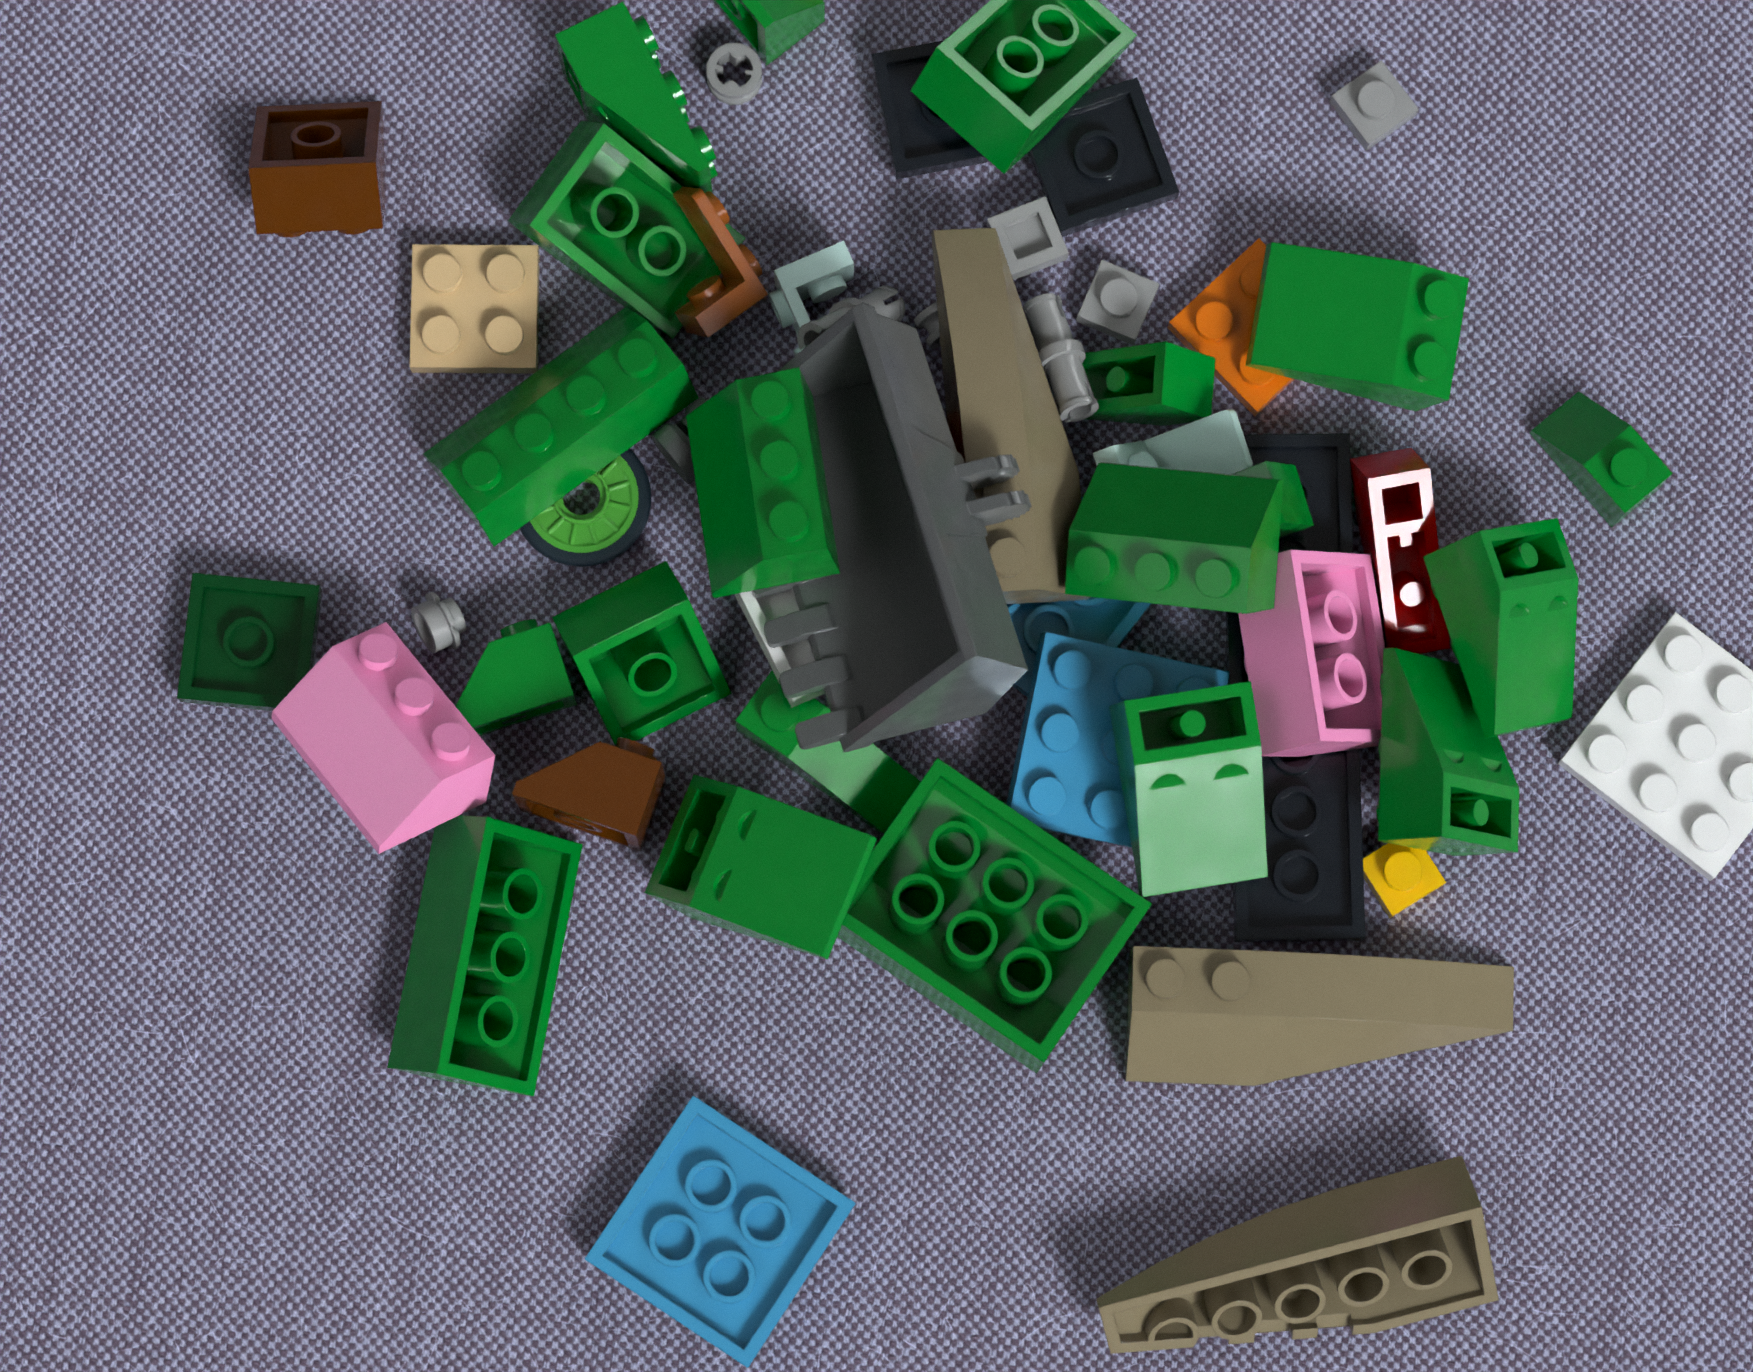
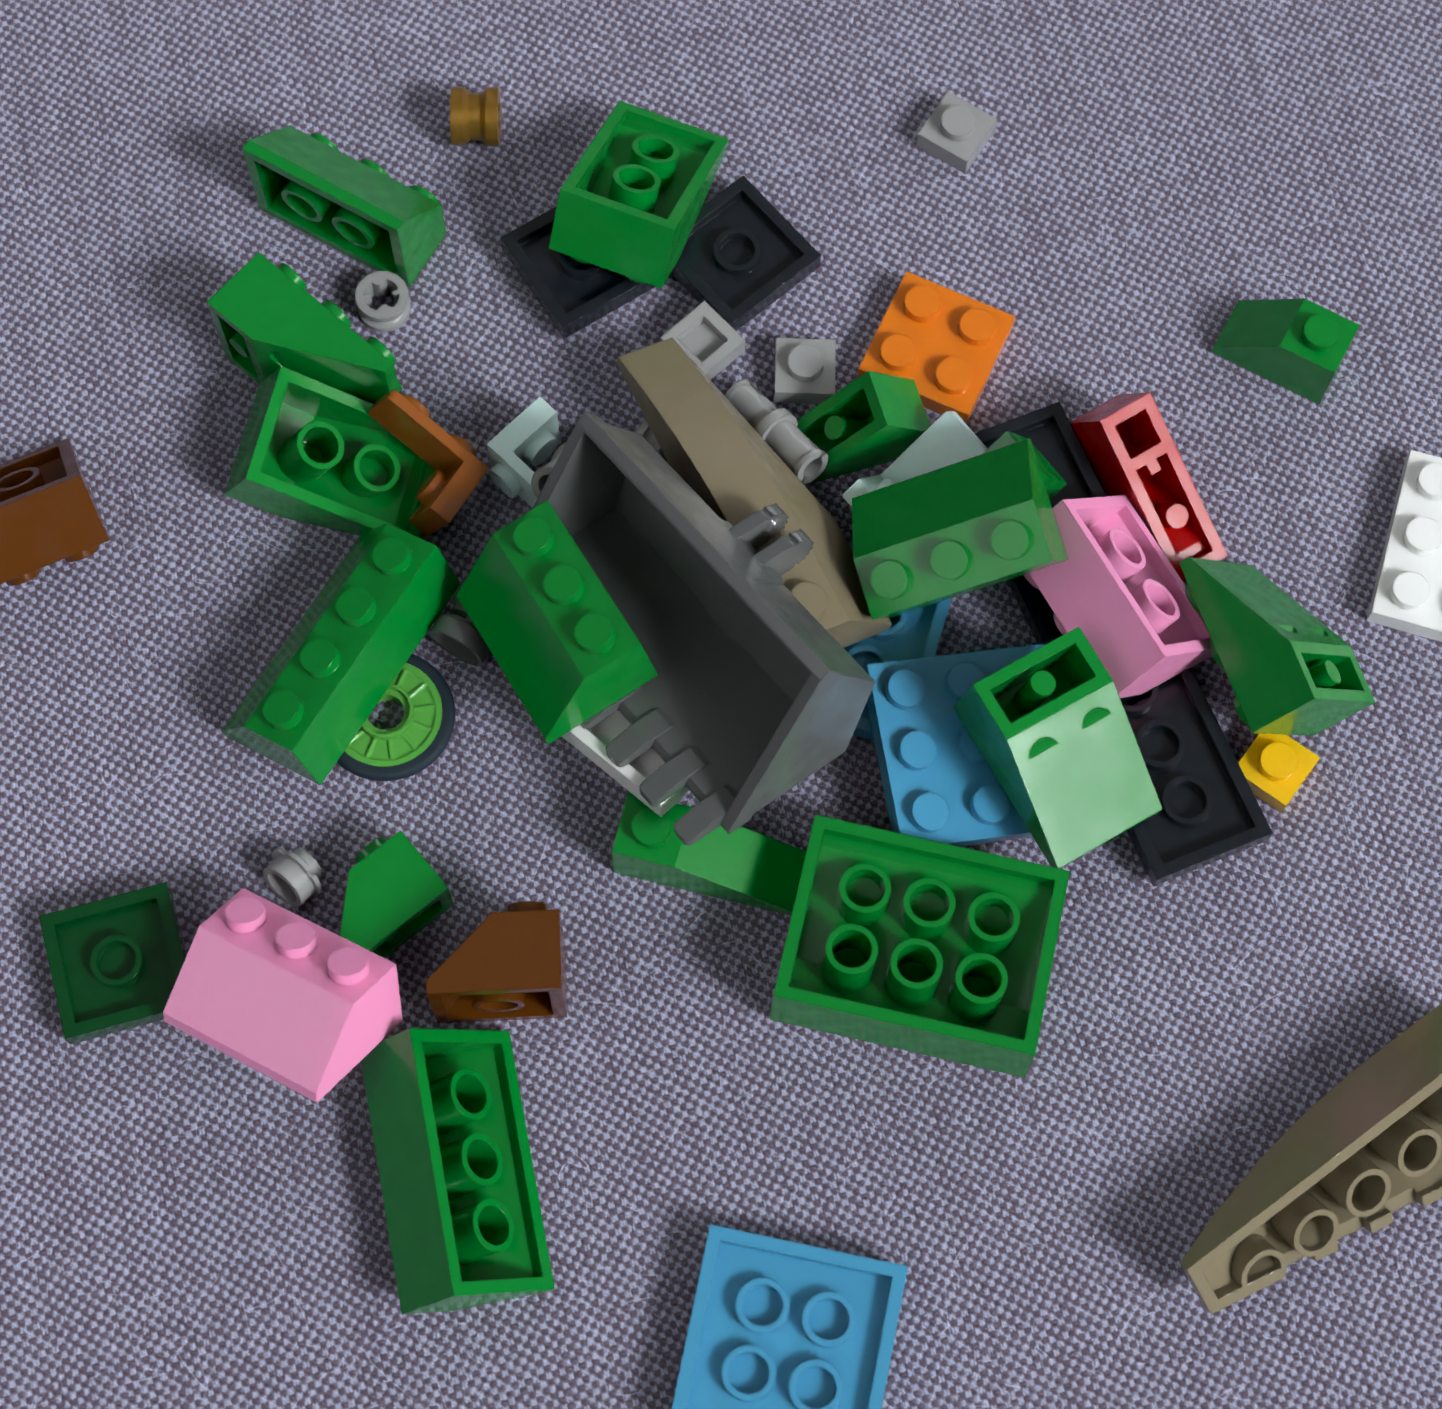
camera: 20 degrees left, 10 degrees down
(474, 309) = (222, 585): tan plate -> none
(642, 654) = (498, 829): green slope -> none
(760, 867) = (690, 978): green slope -> none
(1297, 1013) = (1235, 927): dark tan wedge -> none
(1358, 324) = (1030, 304): green slope -> none
(1511, 622) = (1277, 502): green slope -> none

